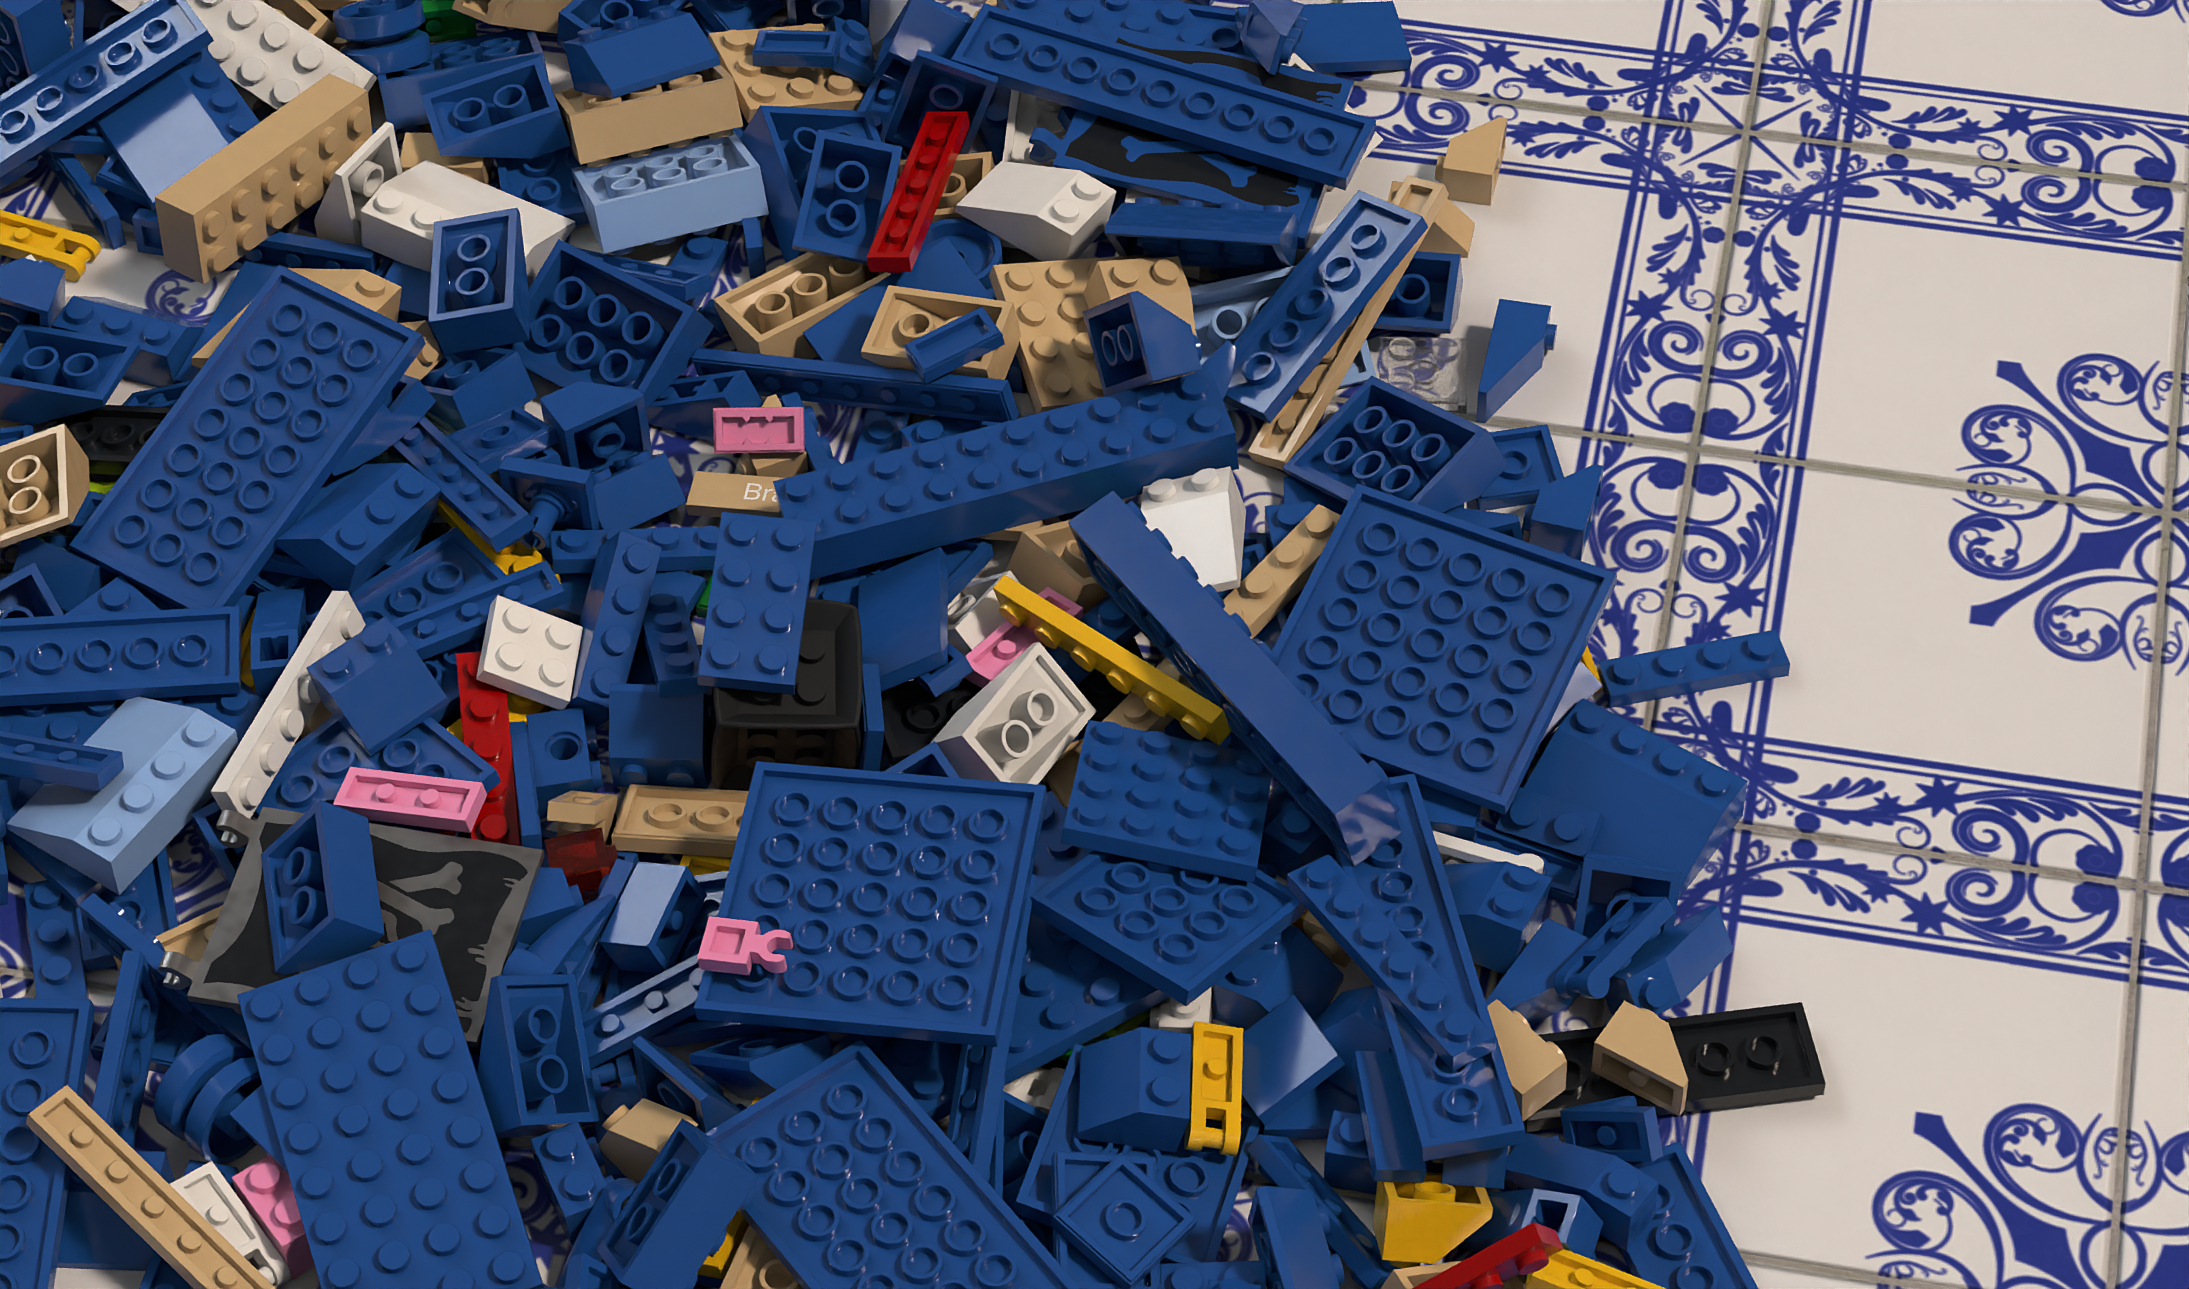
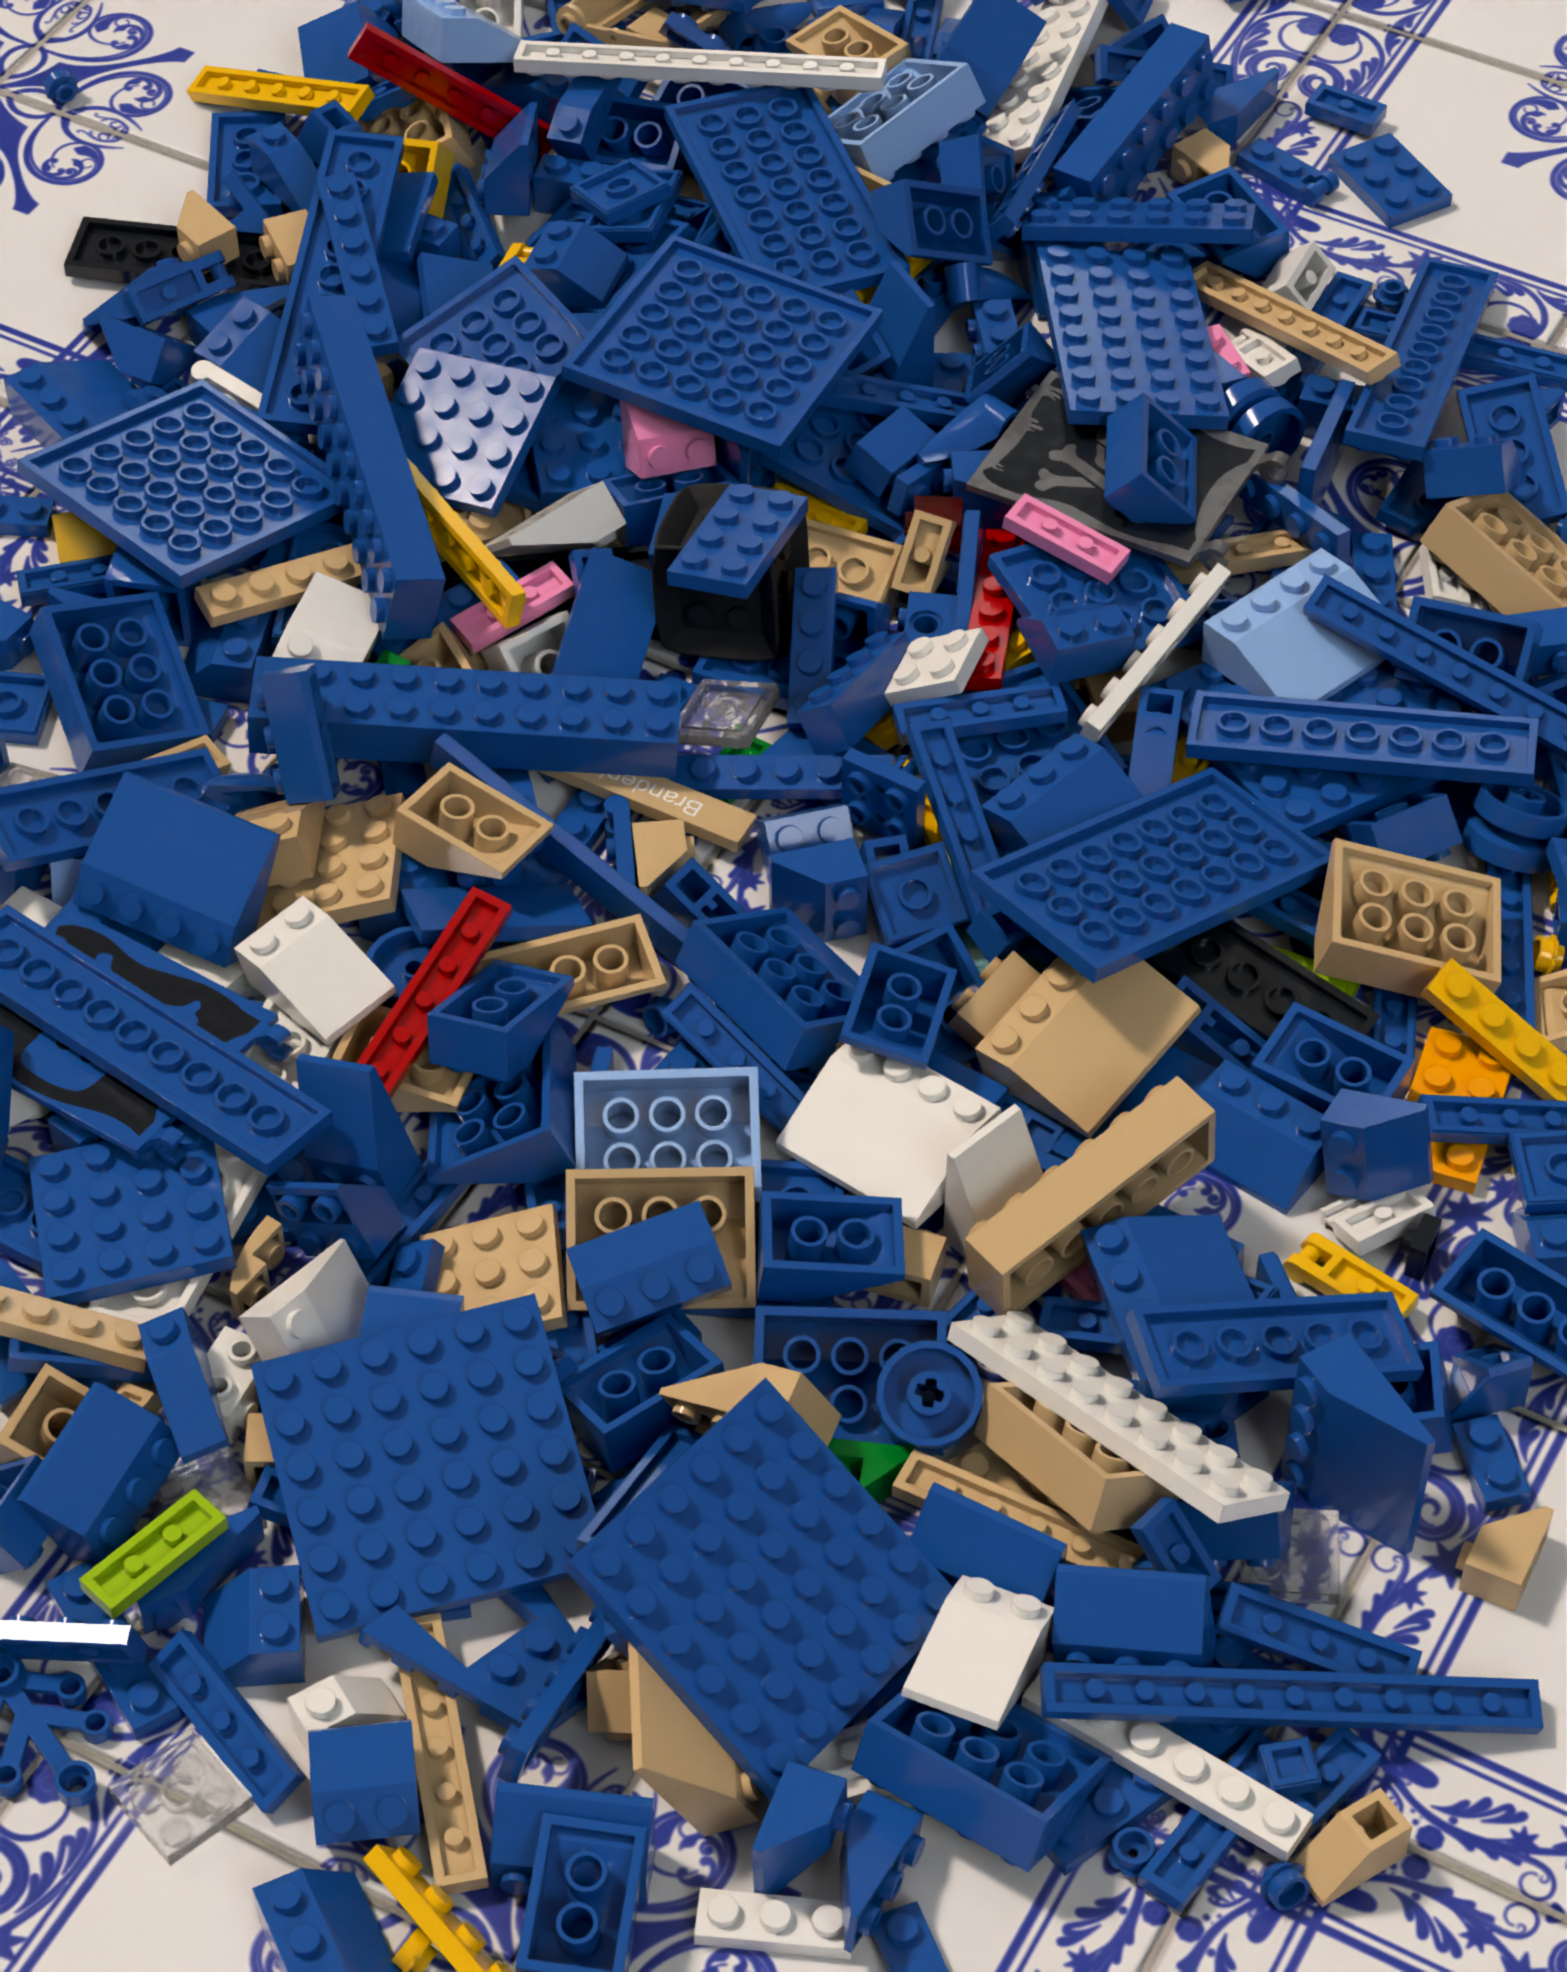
camera: 165 degrees left, 0 degrees up
(638, 1136) = (951, 324): tan slope -> none
(737, 944) = (838, 317): bright pink plate -> none
(759, 429) = (670, 828): bright pink plate -> none
(796, 48) = (476, 1253): blue tile -> none
(954, 345) = (468, 784): blue tile -> none

